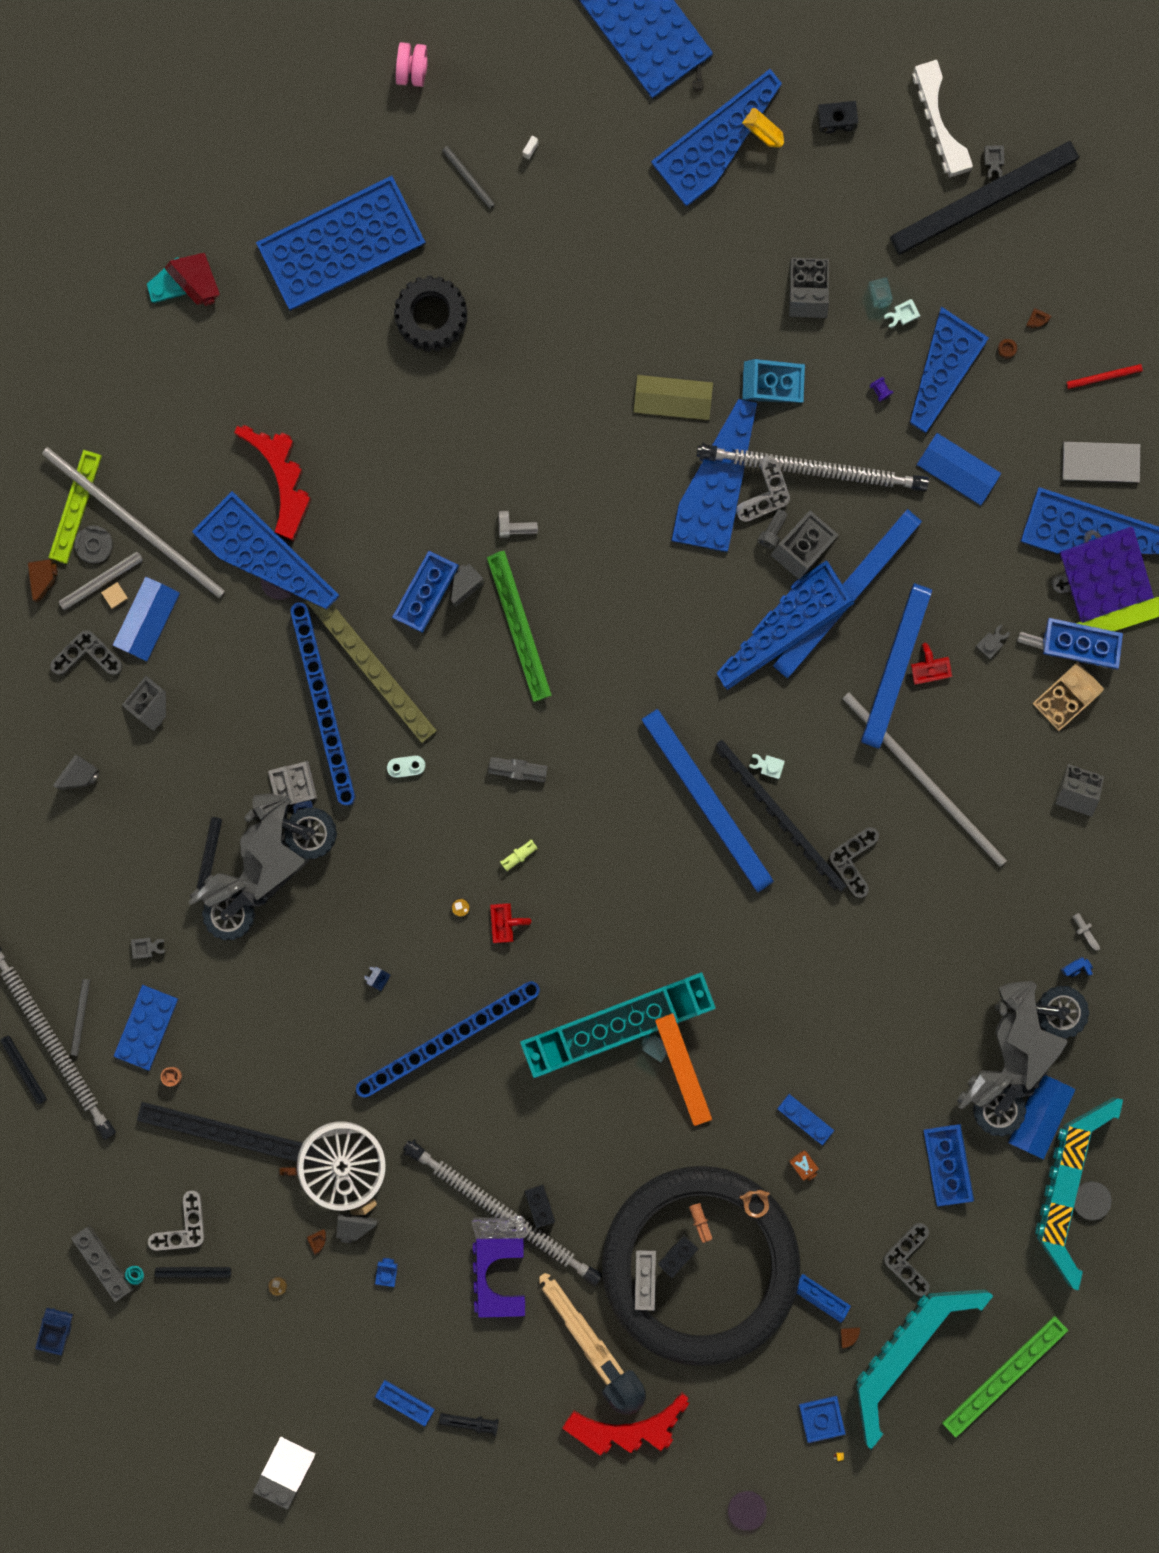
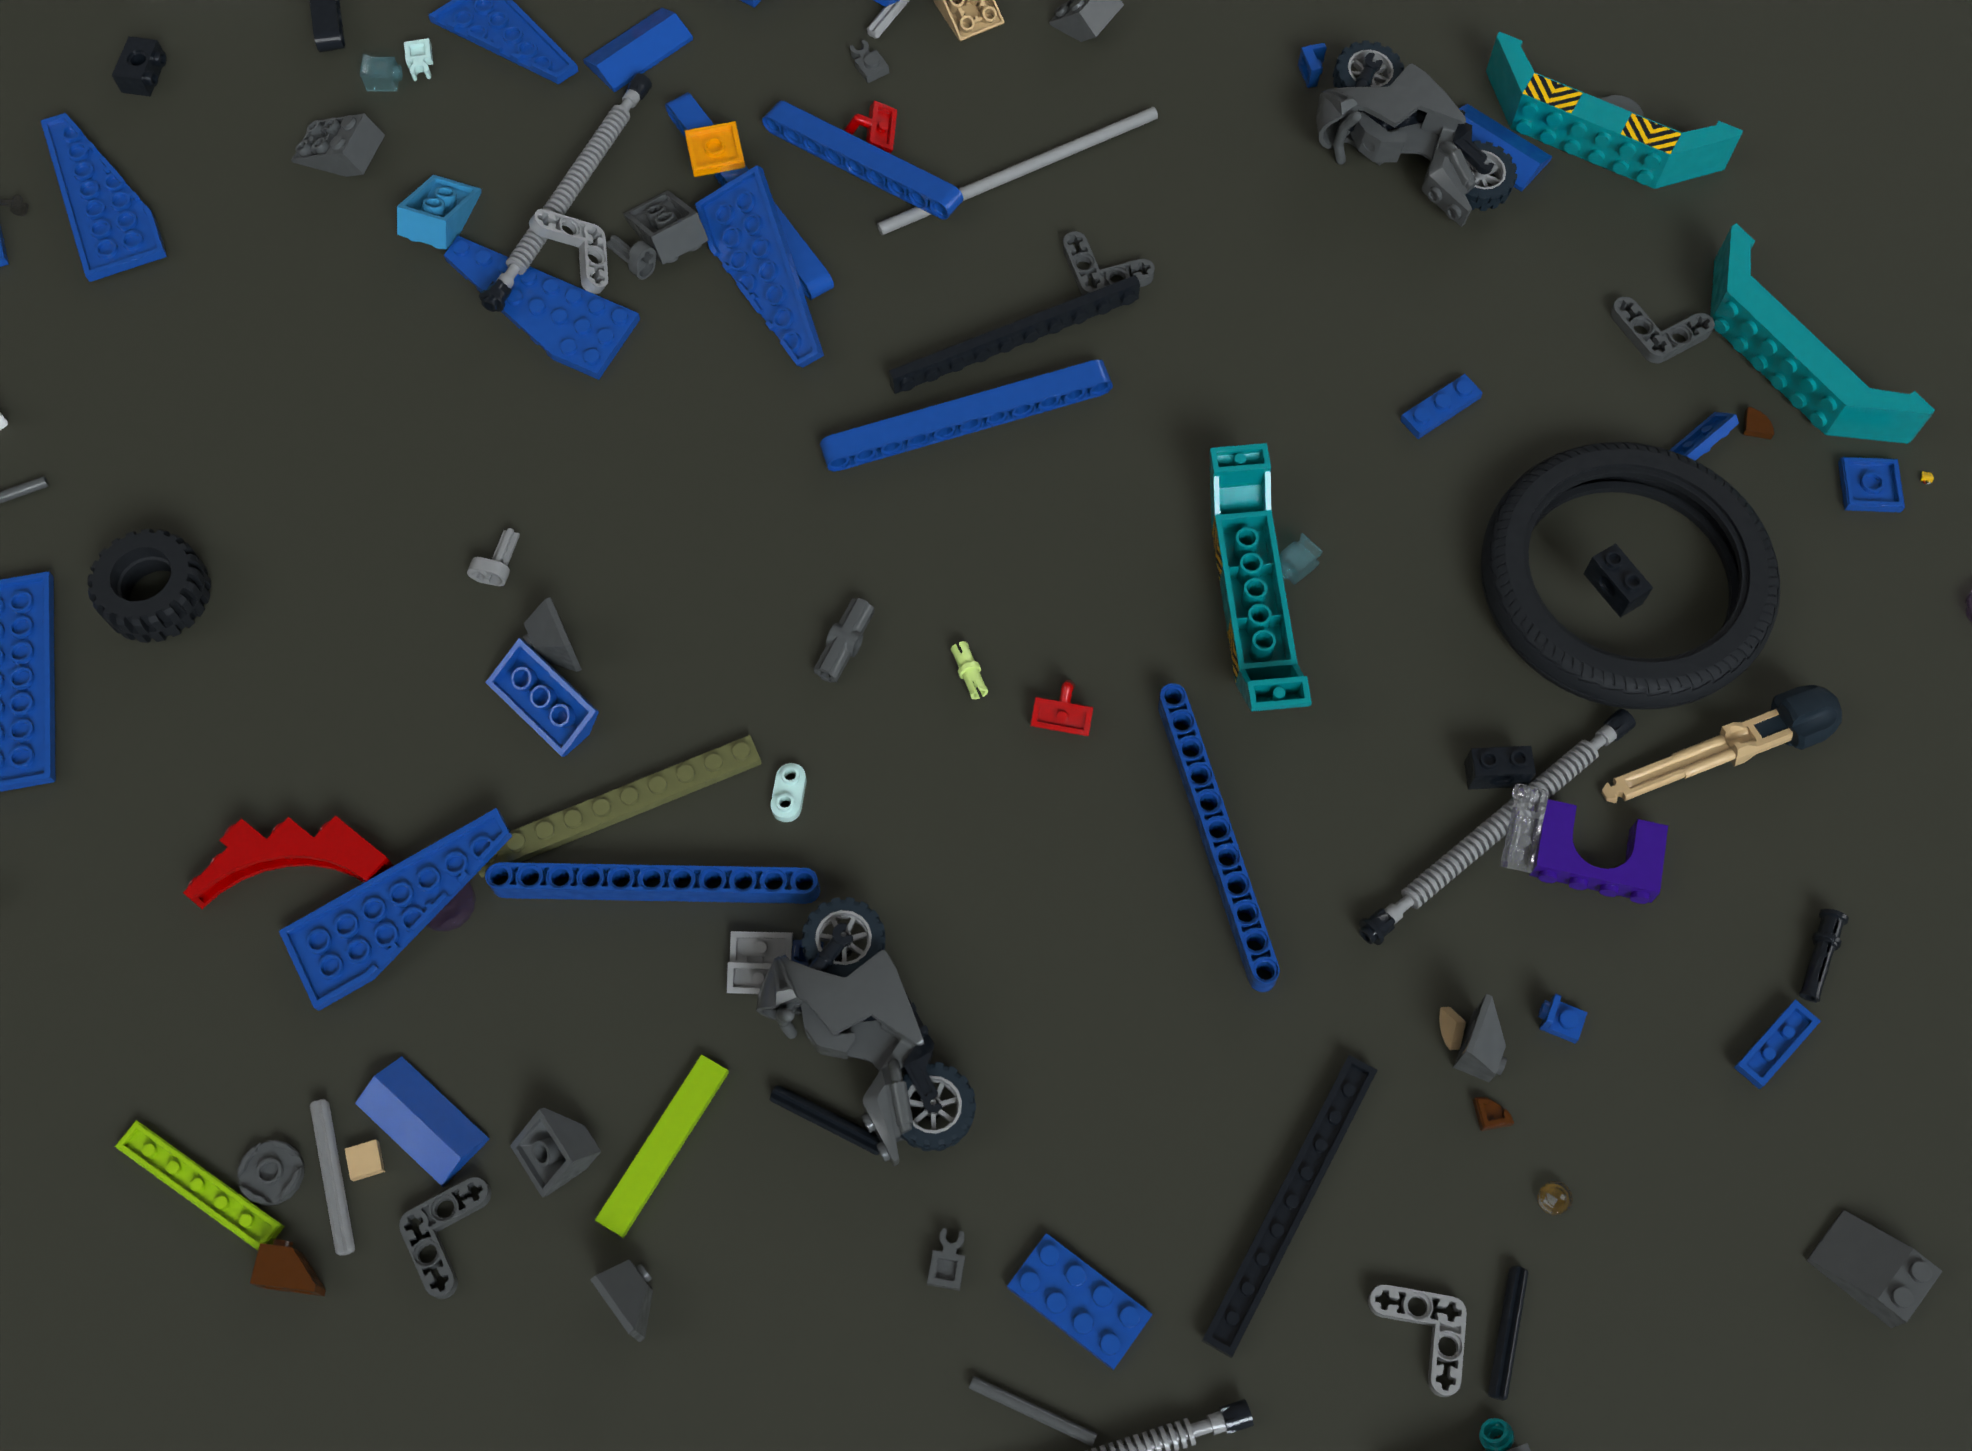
camera: 80 degrees left, 20 degrees down
(133, 522) = (255, 1099): light grey piece -> none
(169, 763) = (662, 1146): none -> lime tile
(171, 1076) = (1172, 1272): nougat wheel -> none
(290, 1171) = (1371, 1121): reddish brown tile -> none
(336, 1129) = (1380, 1039): white piece -> none
(378, 978) = (1097, 910): dark blue tile -> none
(460, 907) = (1022, 769): pearl gold tile -> none
(519, 626) = (641, 587): bright green plate -> none
(628, 1436) = (1868, 730): red arch -> none
(645, 1280) = (1646, 634): light grey plate -> none
(673, 397) = (409, 330): olive slope -> none
(683, 1069) = (1339, 525): orange tile -> none
(700, 1222) = (1571, 542): nougat axle -> none
(747, 1198) = (1549, 457): medium nougat piece -> none
(764, 129) = (114, 143): yellow tile -> none
(770, 766) = (943, 335): light aqua plate -> none
(804, 1165) = (1506, 418): dark orange brick -> none
(872, 560) = (714, 149): none -> light orange tile
(881, 389) = (496, 106): dark purple bush -> none
(948, 1165) = (1540, 254): blue slope -> none
(1005, 1376) = (1840, 259): bright green plate -> none
(1085, 929) = (1263, 49): light grey piece -> none

